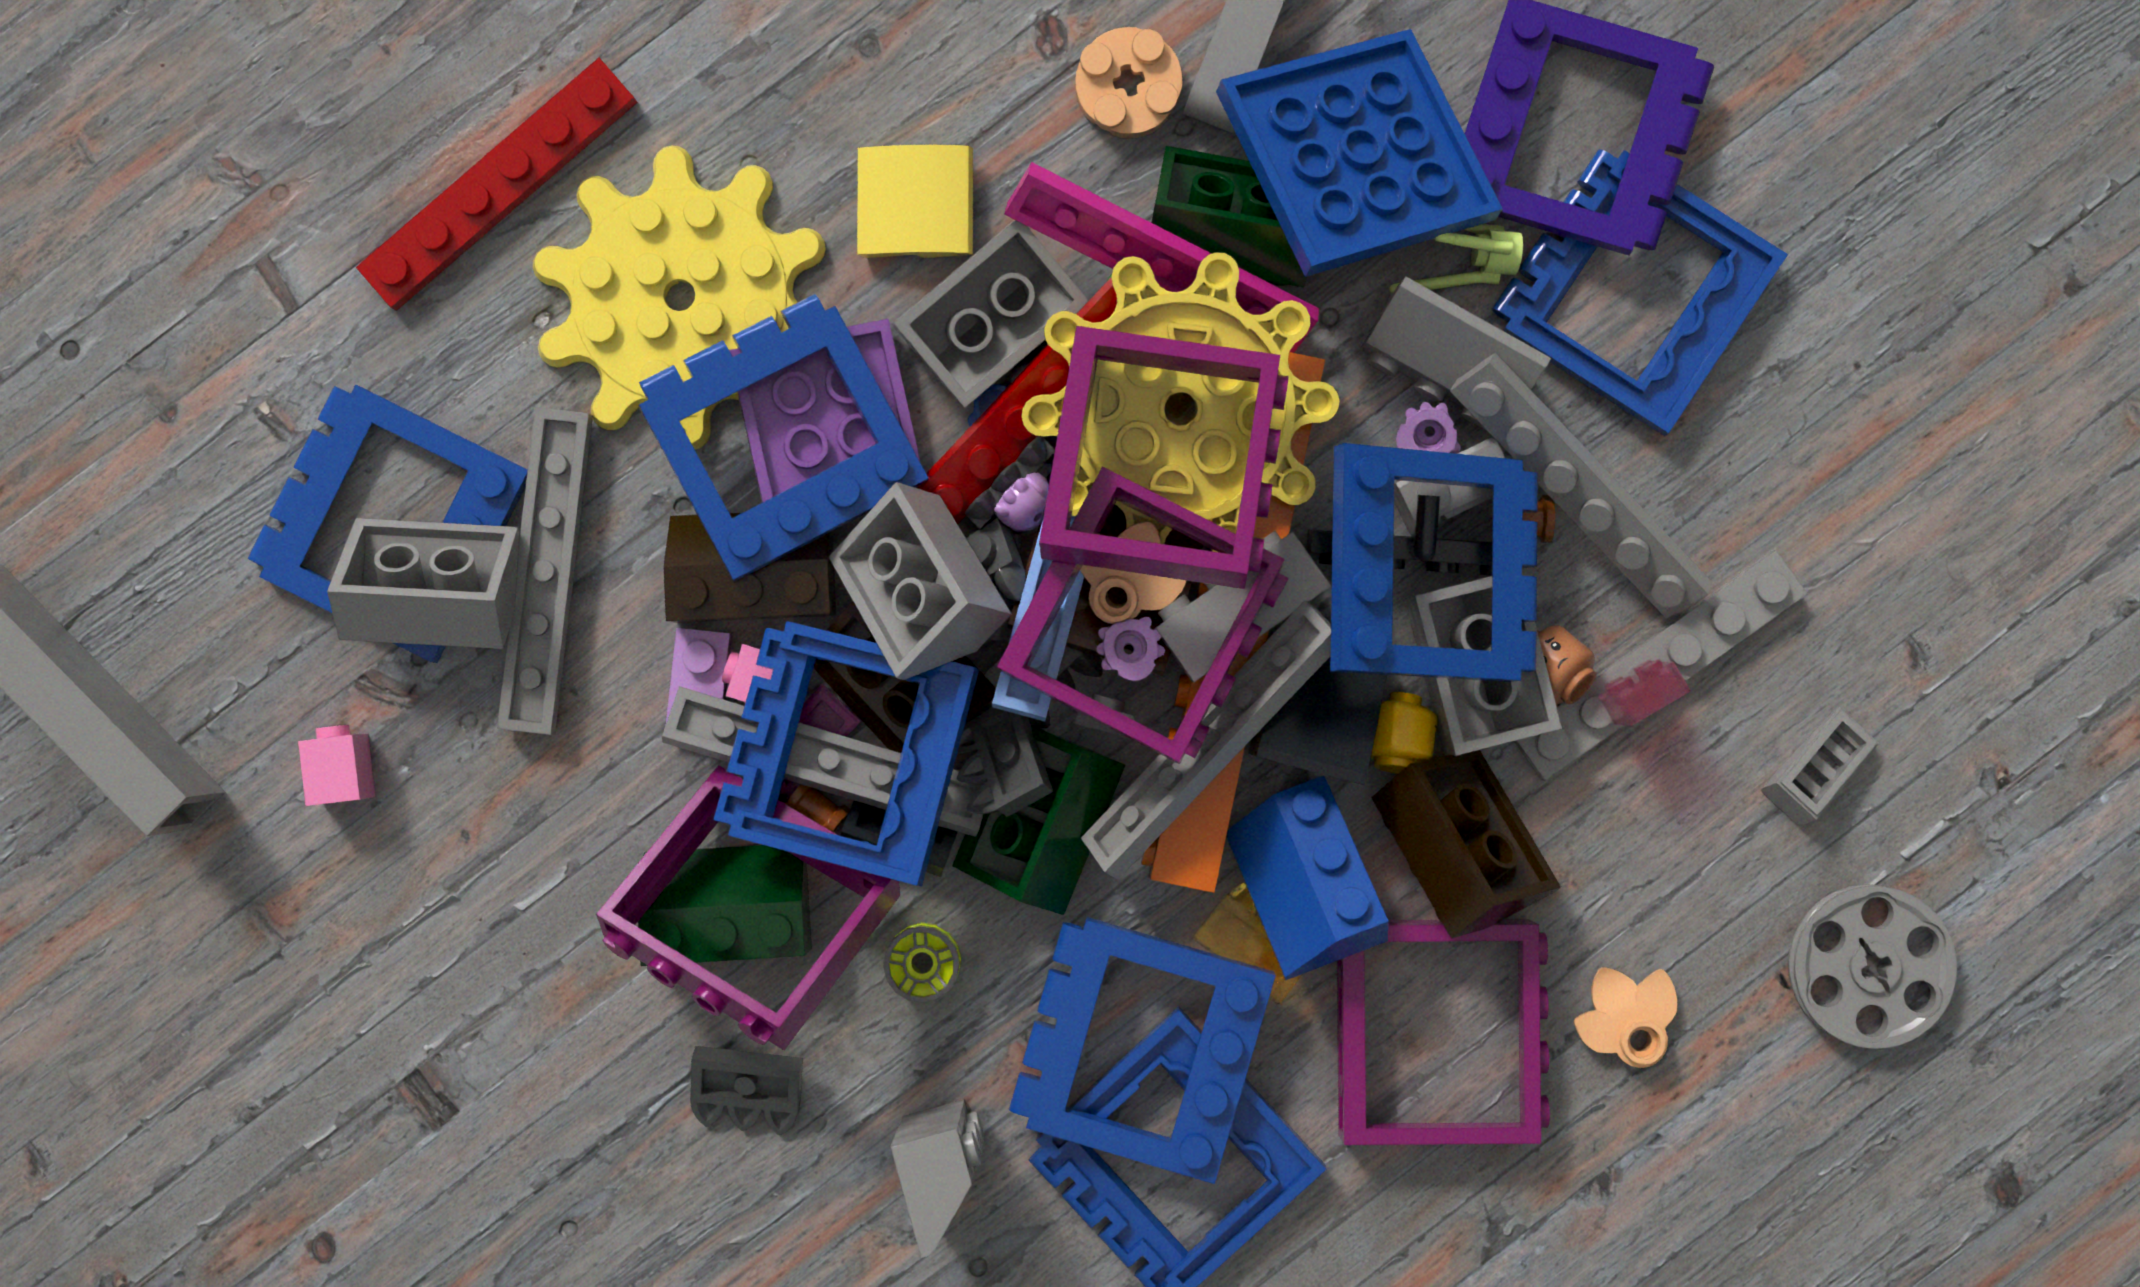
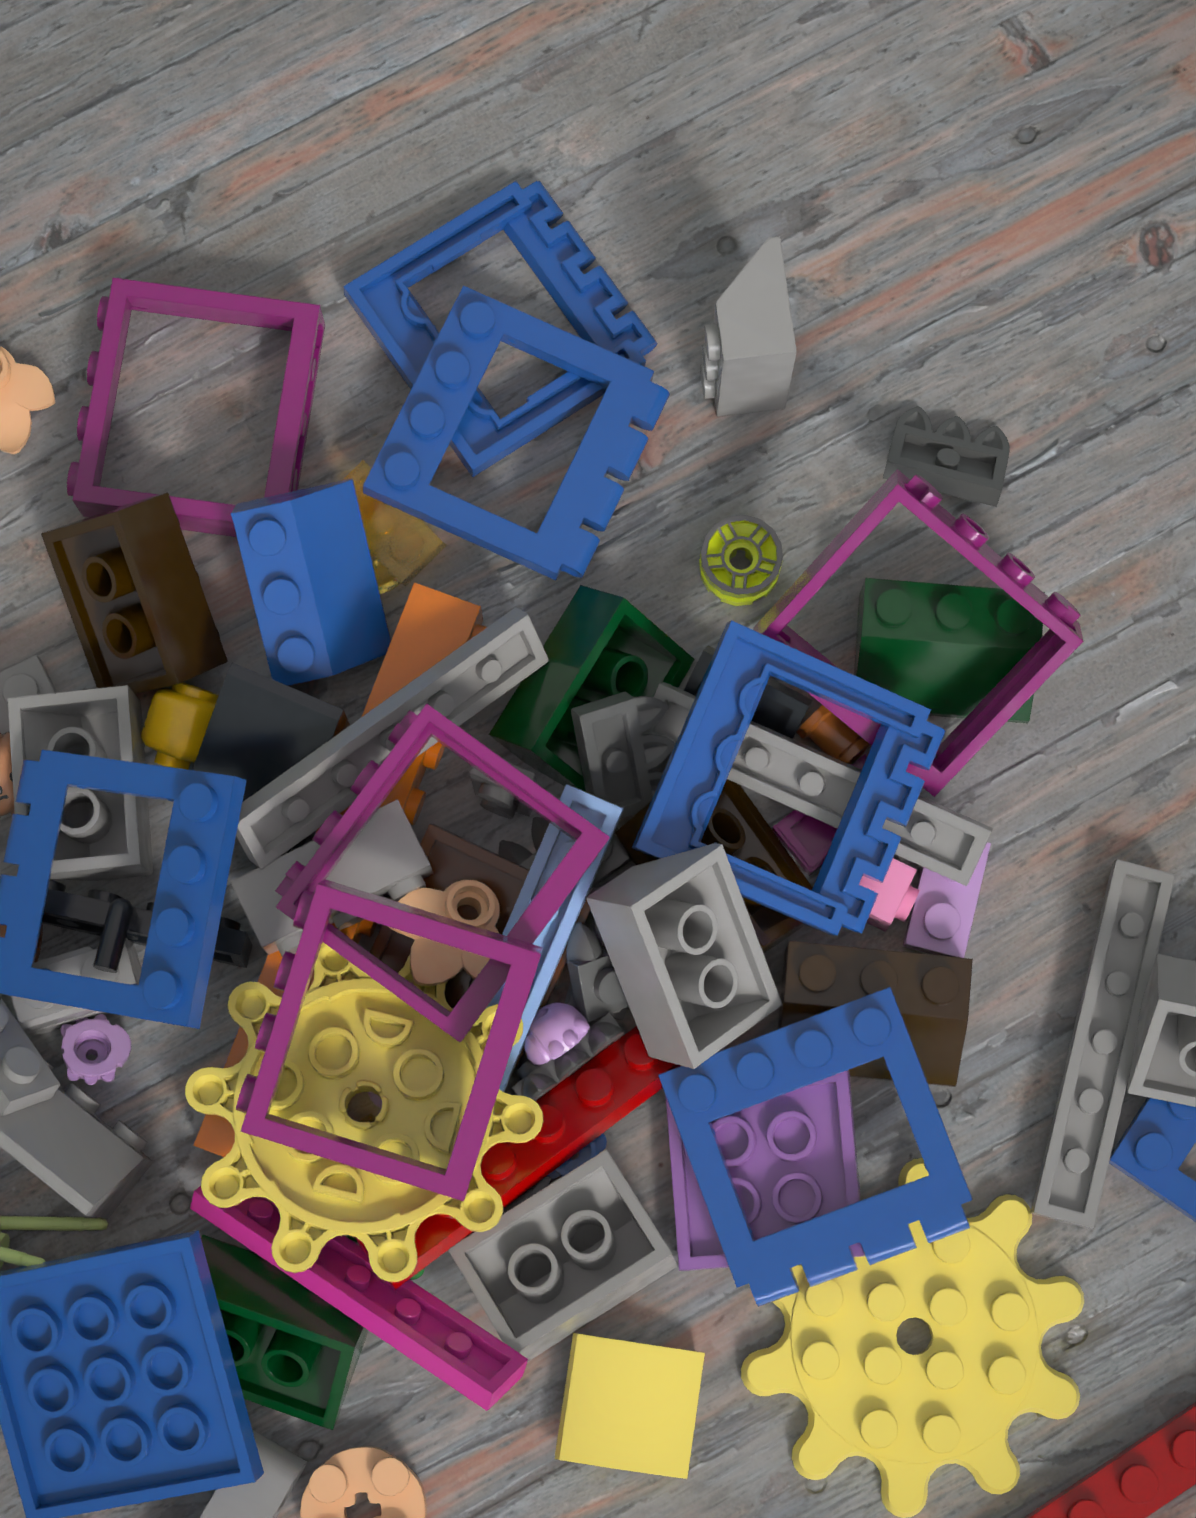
camera: 170 degrees left, 10 degrees down
(1144, 643) = (455, 834): lavender animal -> none

